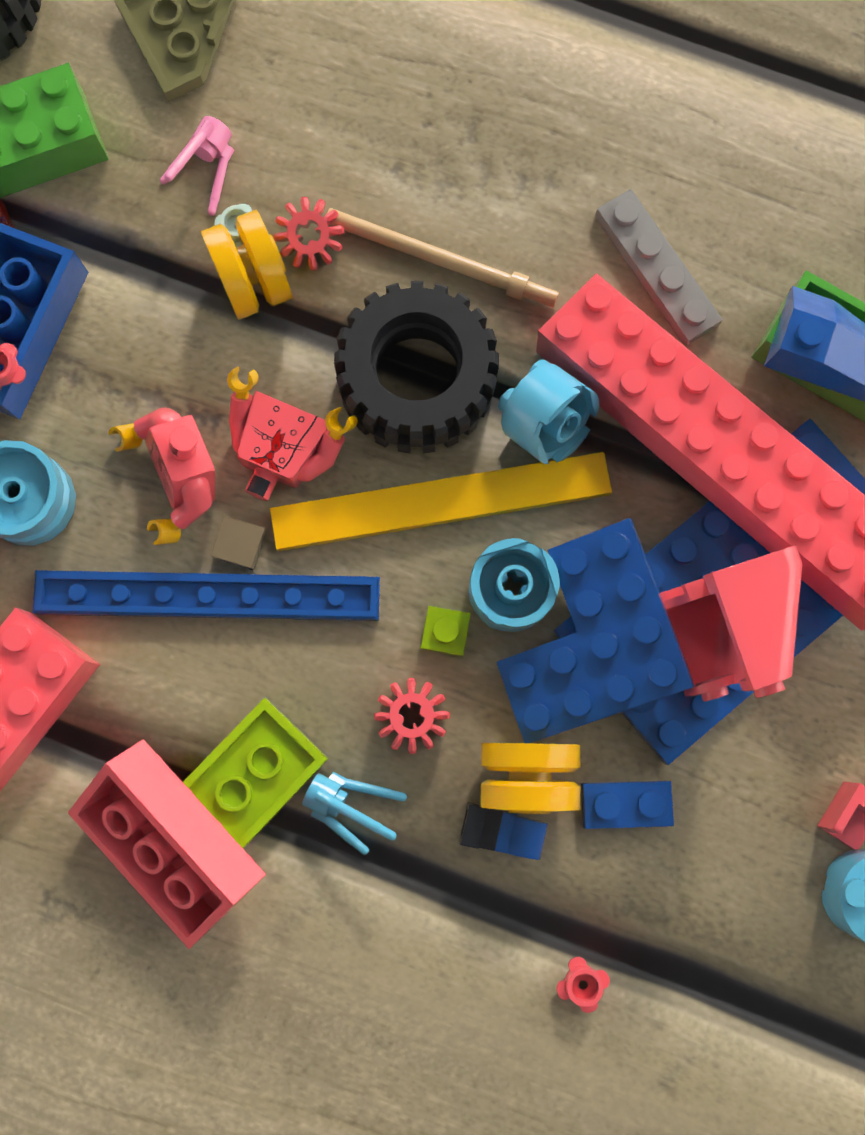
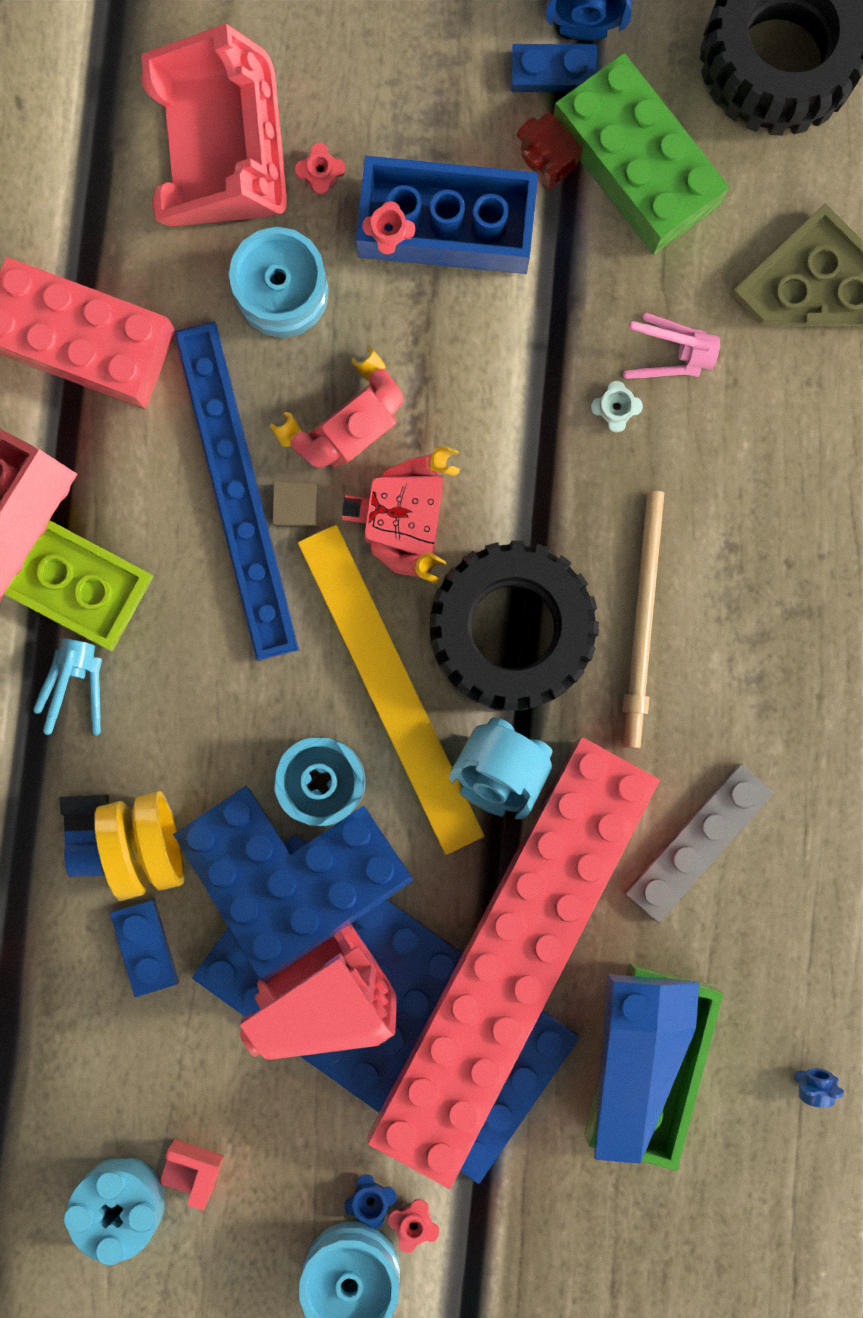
camera: 80 degrees right, 5 degrees up
(249, 264) = (563, 424): yellow wheel -> none
(304, 219) = (634, 466): coral gear -> none
(397, 719) = (166, 704): coral gear -> none
(445, 631) = (263, 728): lime plate -> none

